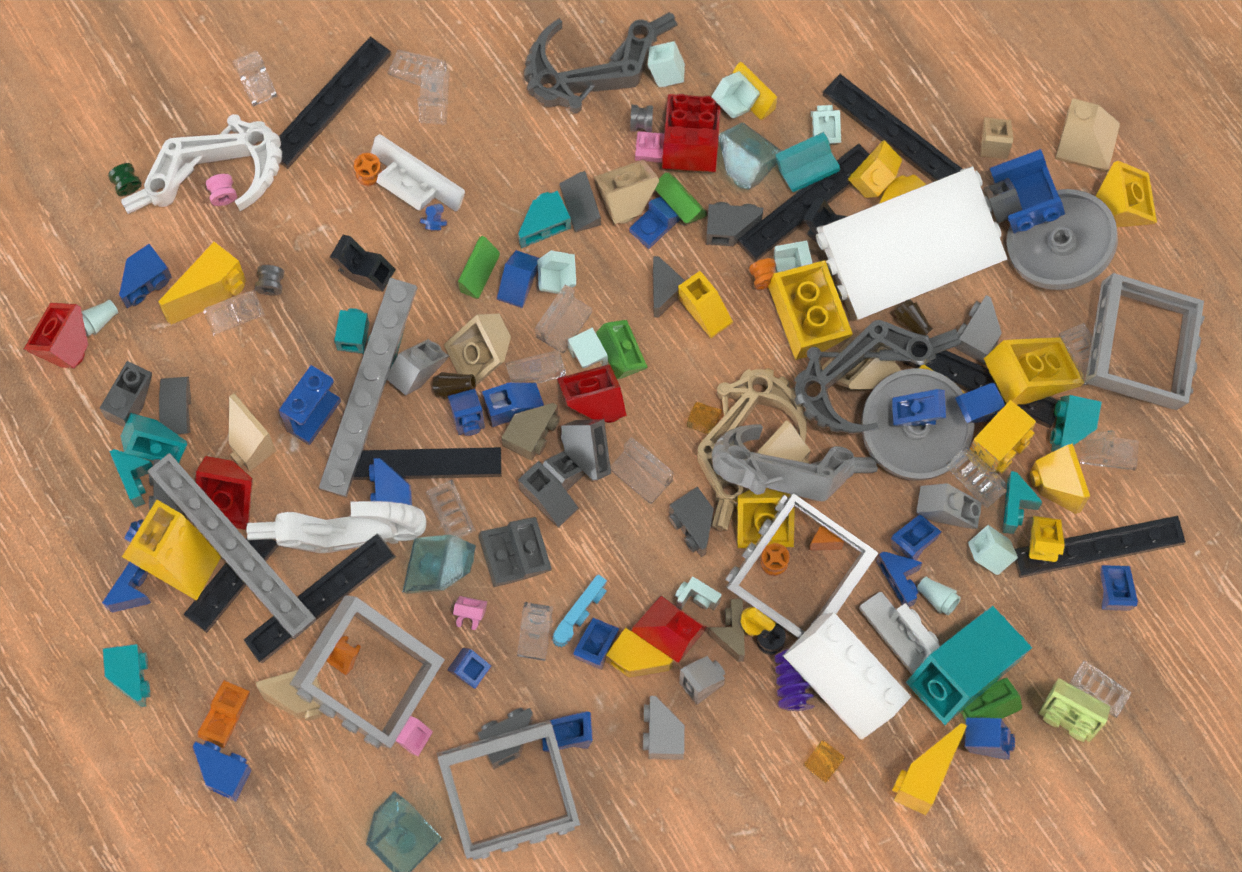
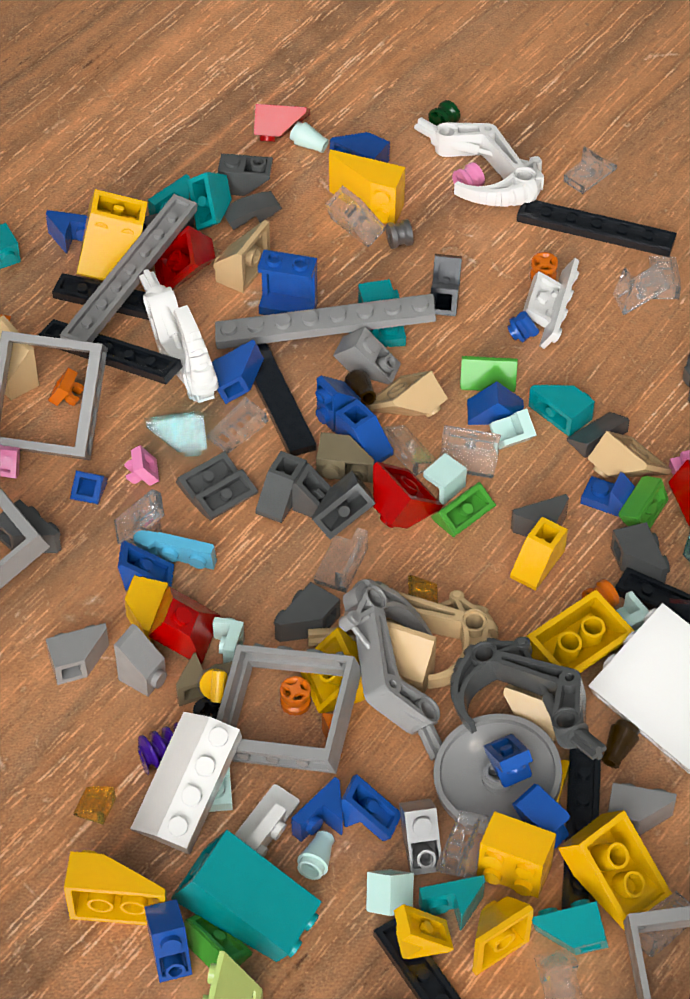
camera: 70 degrees right, 20 degrees down
(572, 731) = (49, 578): blue slope -> none

